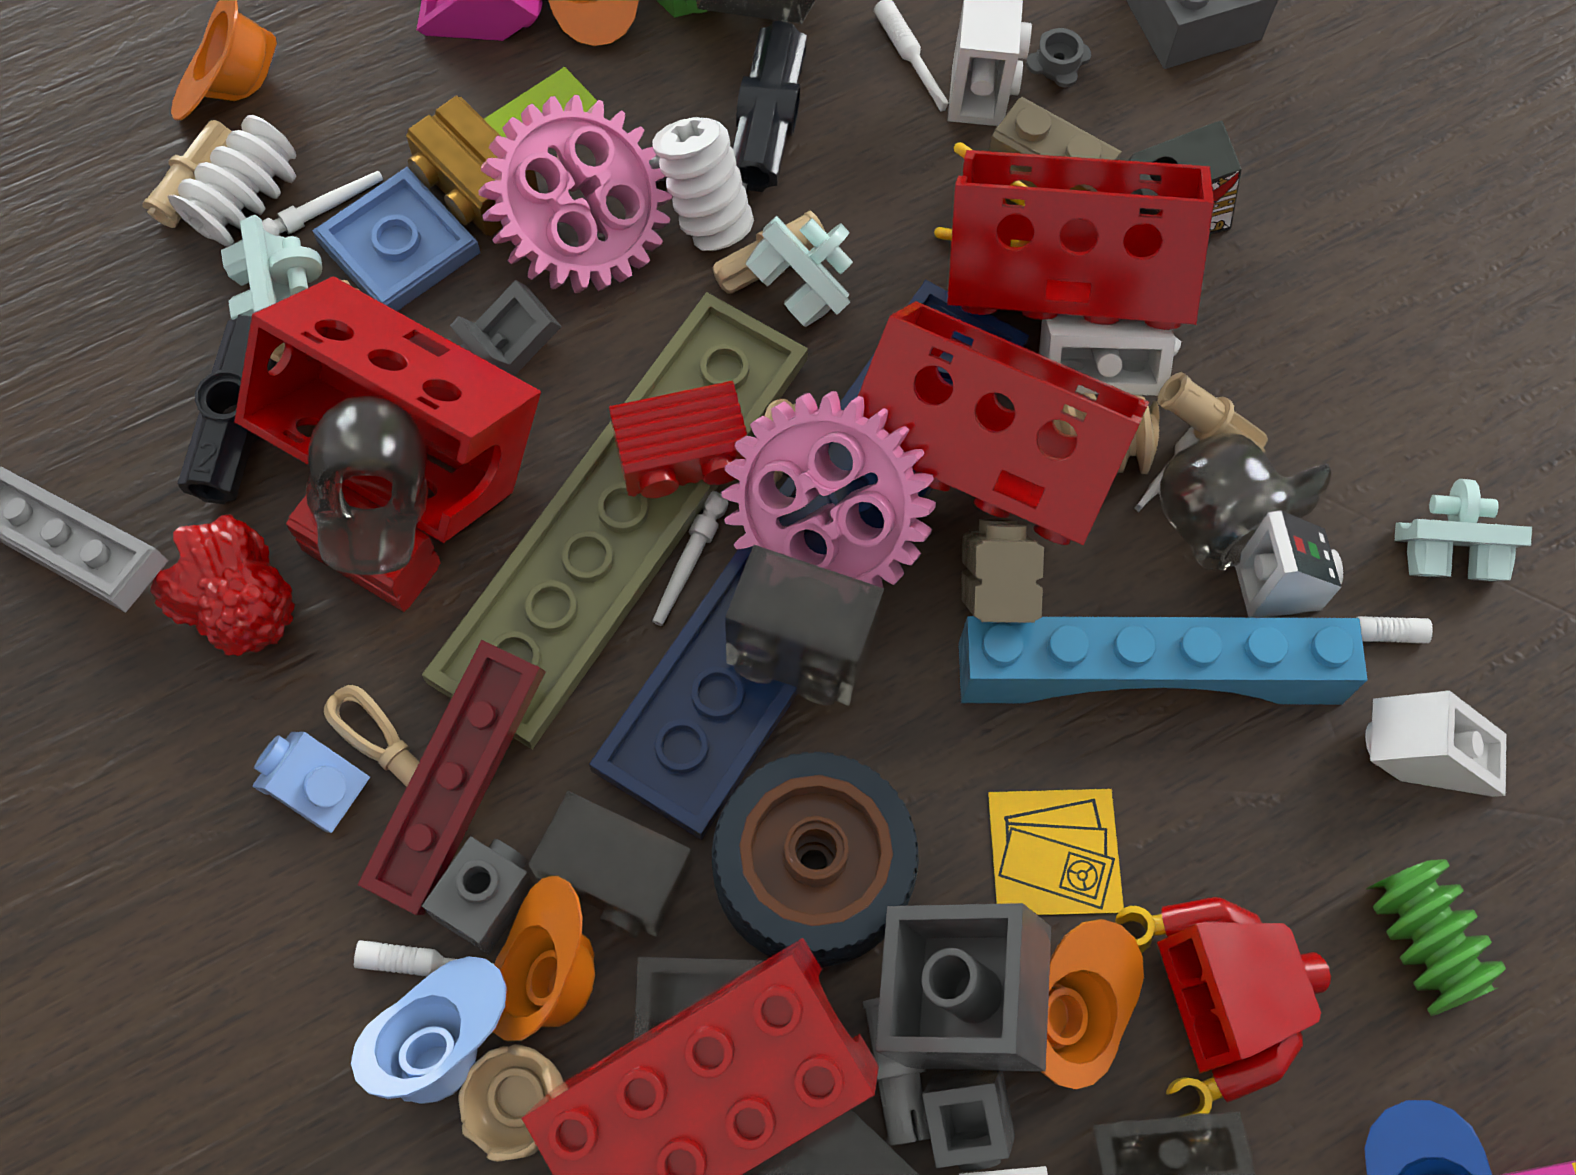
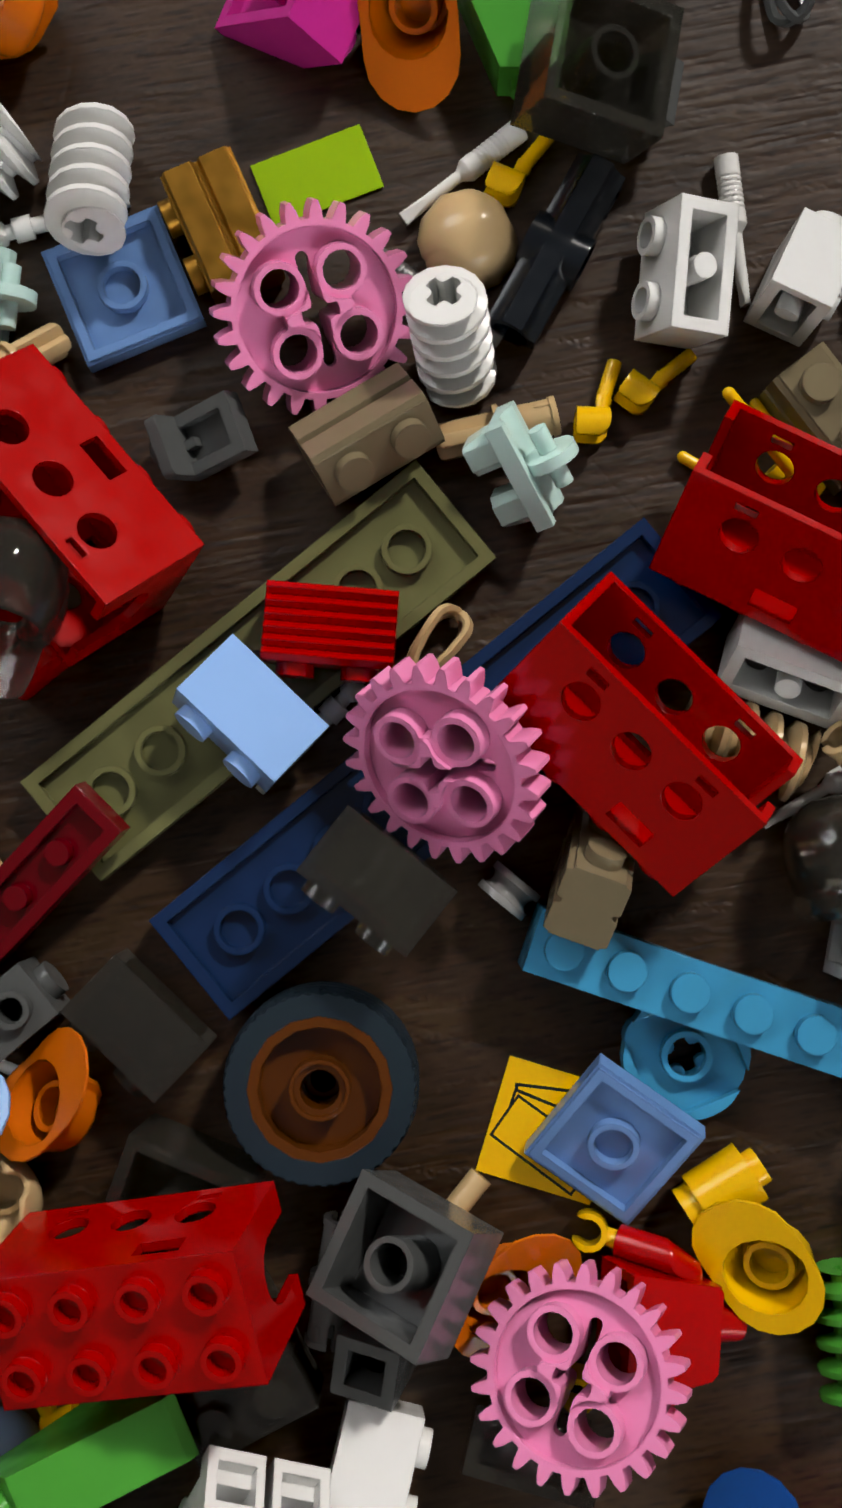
camera: 20 degrees right, 20 degrees up
(344, 155) = (90, 179): none -> white piece
(628, 528) = (247, 714): none -> light blue brick
(655, 281) = (367, 433): none -> dark tan brick
(672, 69) = (470, 167): none -> white piece
(687, 99) = (469, 233): none -> tan hair
(707, 70) = (506, 182): none -> yellow hand
(855, 217) = (593, 422): none -> yellow hand
(883, 191) = (639, 392): none -> yellow hand
(885, 85) = (685, 271): none -> white brick
(928, 629) = (509, 890): none -> light grey bush
(1121, 827) = (614, 1139): none -> medium blue tile
(1149, 764) = (699, 1091): none -> dark azure plate
(1244, 840) = (722, 1178): none -> yellow brick
(1250, 1030) = (633, 1401): none -> bright pink gear
(1313, 886) = (760, 1265): none -> yellow piece

